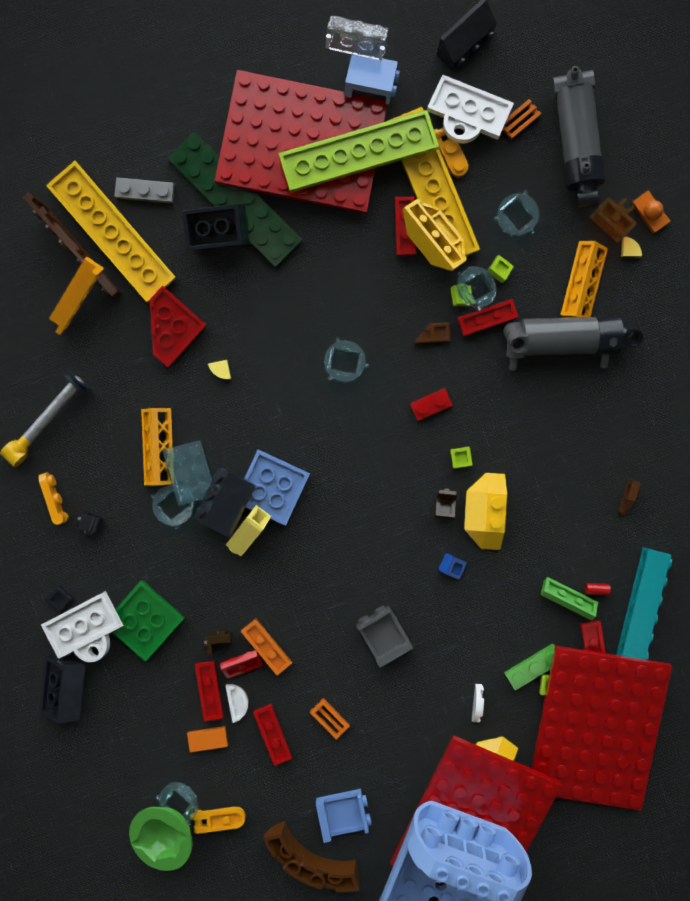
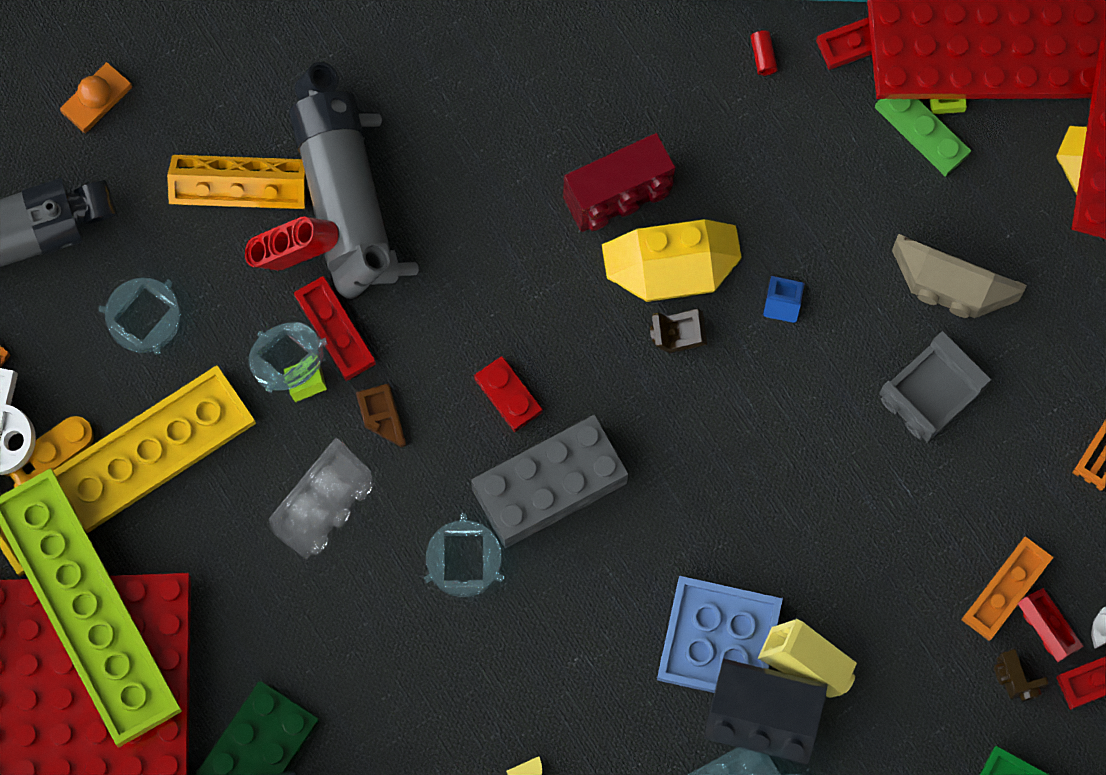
camera: 105 degrees left, 15 degrees down
(376, 415) = (549, 481): none -> dark grey brick
(391, 290) = (321, 500): none -> clear slope
(404, 244) = (199, 503): red plate -> none
(434, 235) = (212, 441): yellow wedge -> none
(441, 660) = (952, 281): none -> dark tan wedge
(461, 457) = (590, 322): lime plate -> none
(478, 703) = (1011, 205): white tile -> none
(500, 268) = (244, 324): lime plate -> none
(536, 490) = (619, 183): none -> dark red brick
(539, 301) = (291, 243): none -> red beam
(569, 598) = (790, 94): bright green plate -> none
(614, 218) = (121, 152): clear orange brick -> none
(629, 497) = (593, 33): reddish brown tile -> none
(630, 248) = (165, 118): light yellow tile -> none

